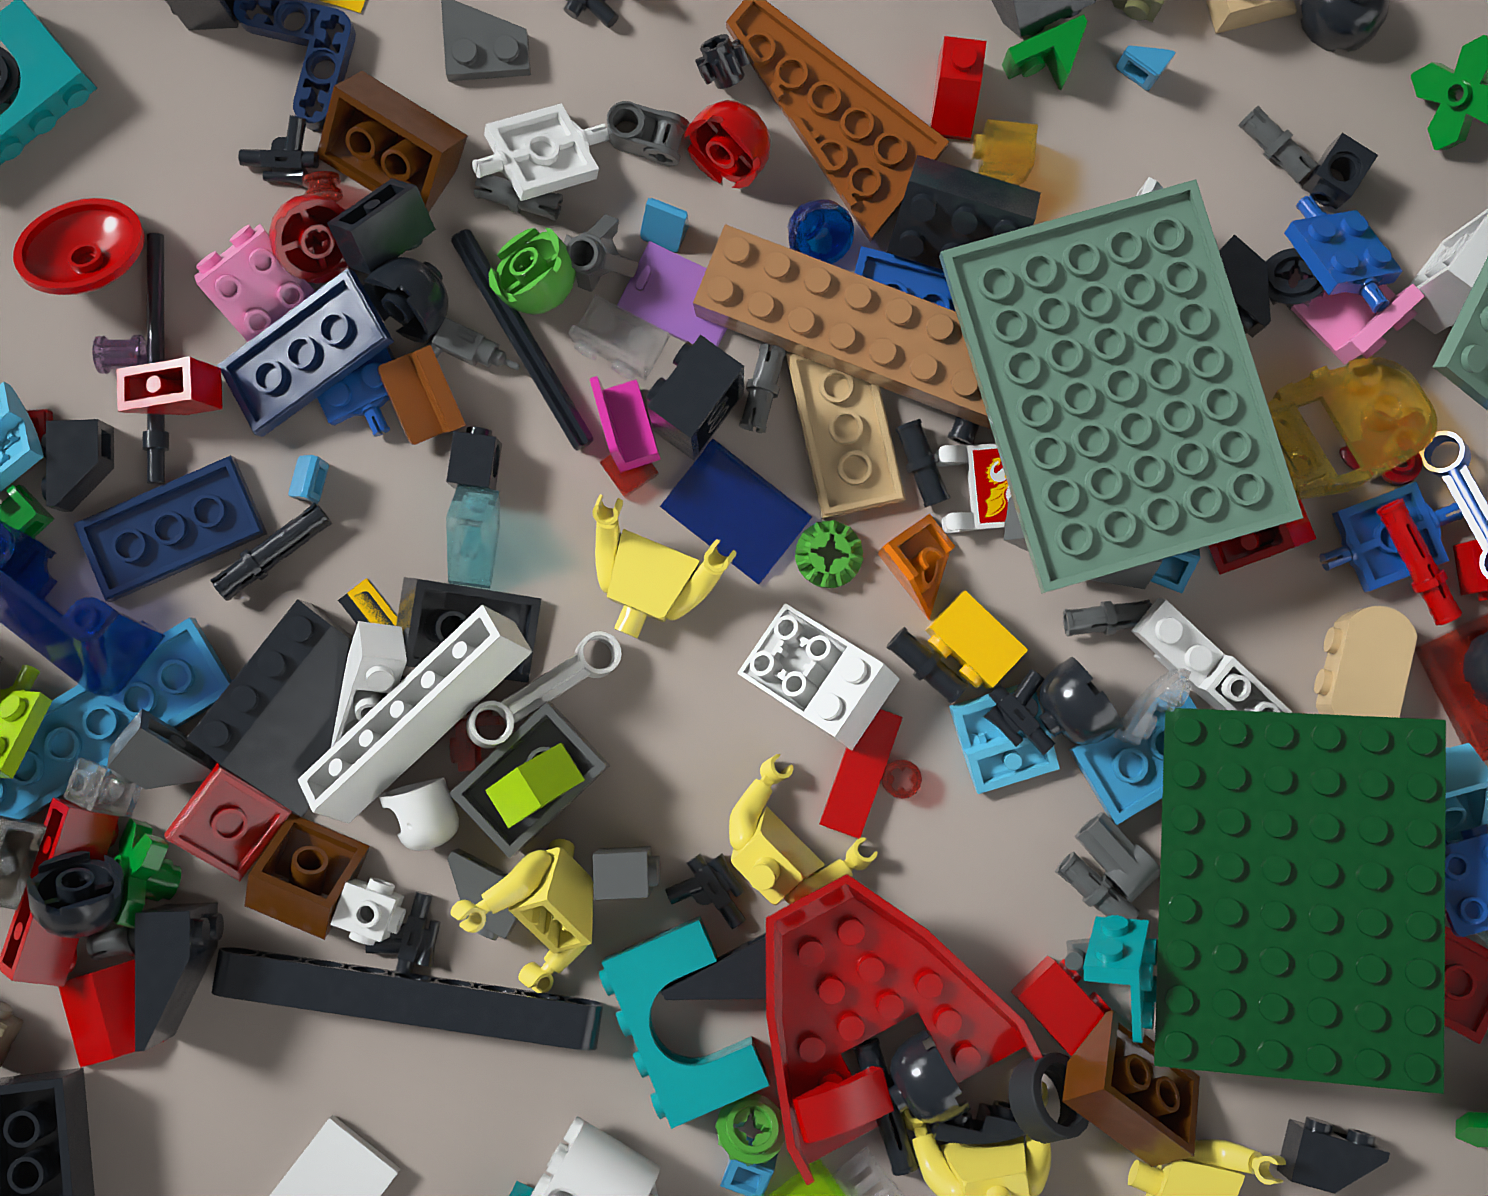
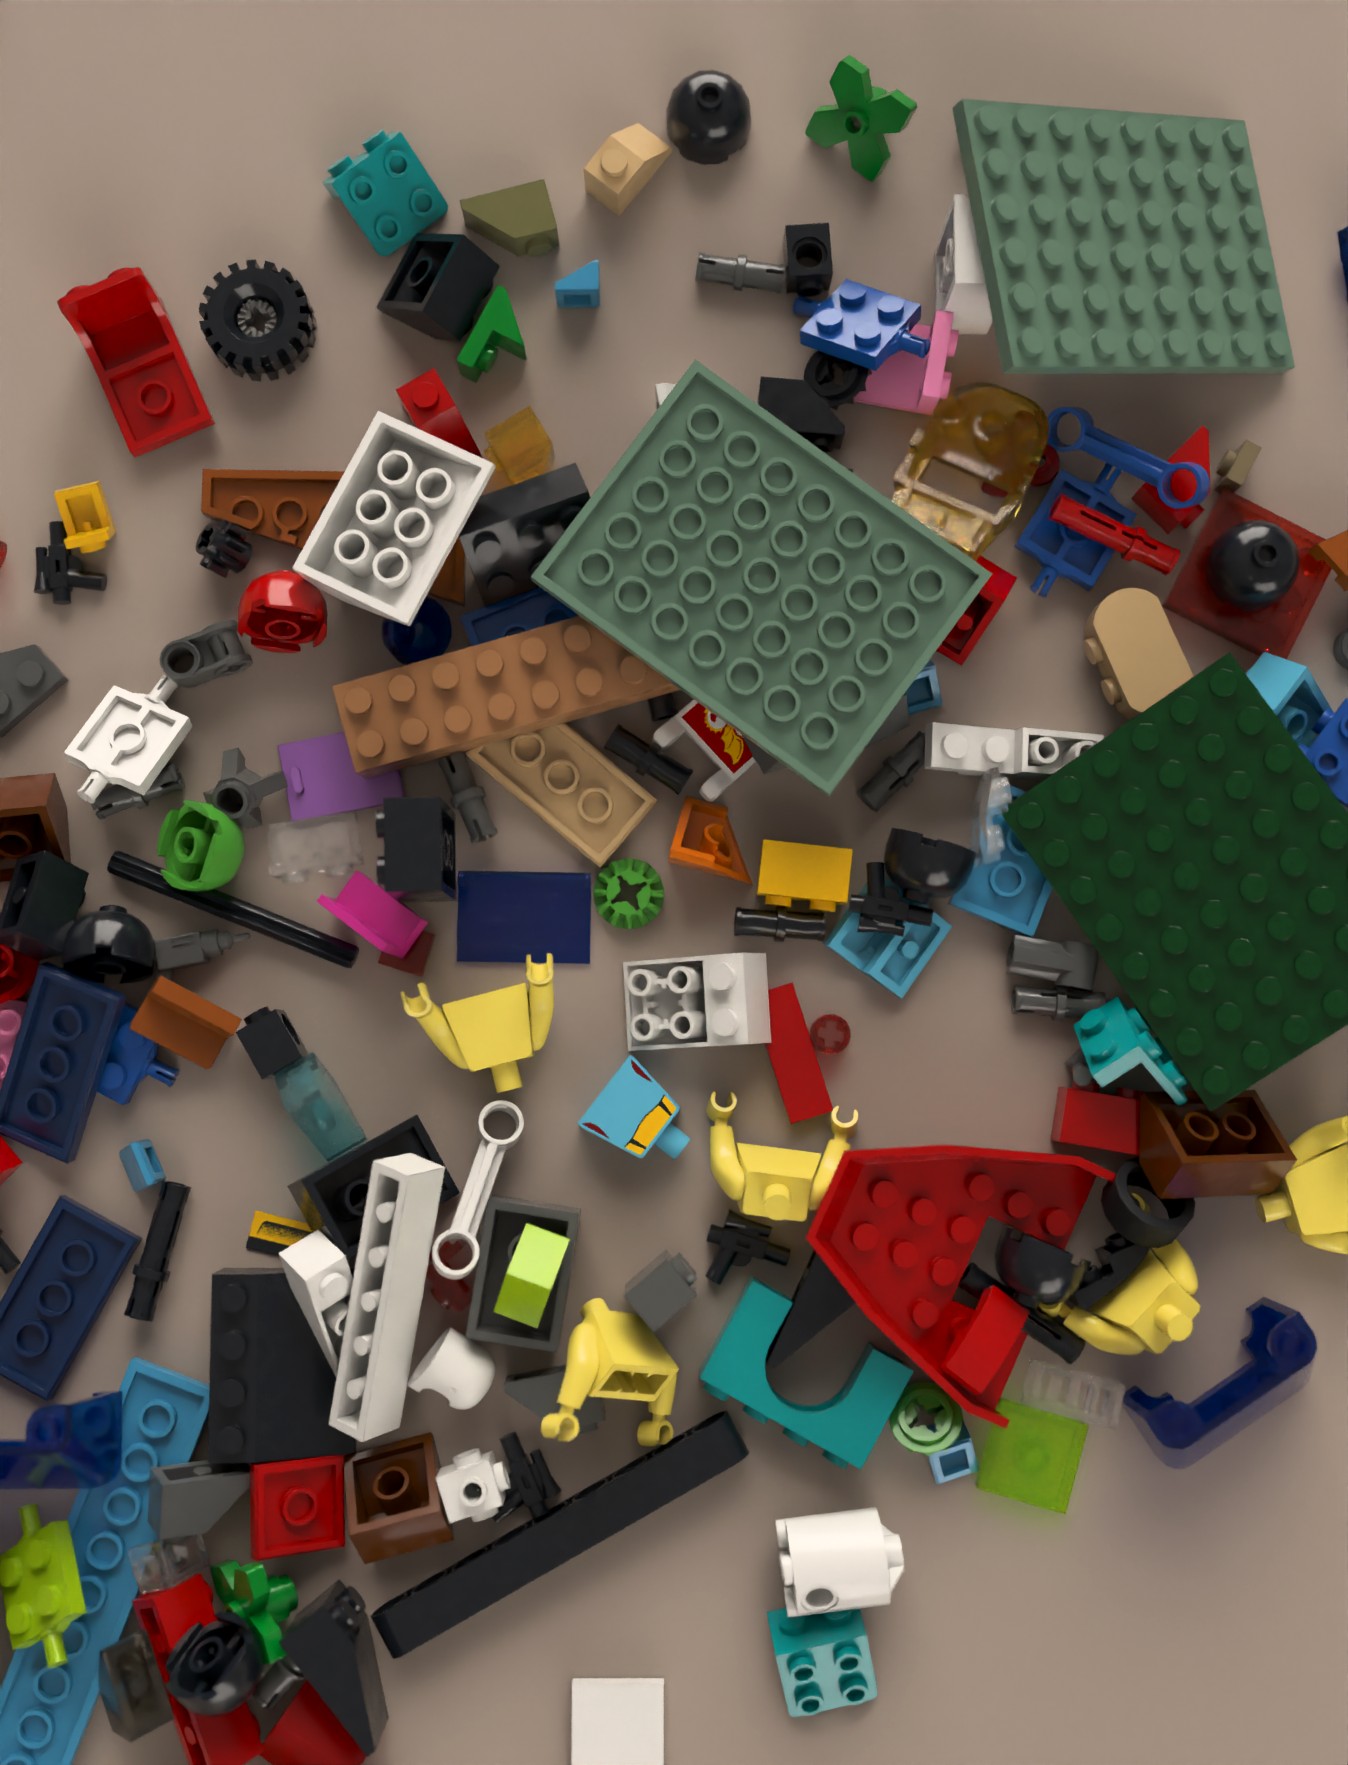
camera: 40 degrees left, 0 degrees up
(664, 225) = (280, 723): dark azure slope -> none
(707, 724) = (635, 1113): none -> medium azure torso
(868, 131) = (393, 519): none -> white slope

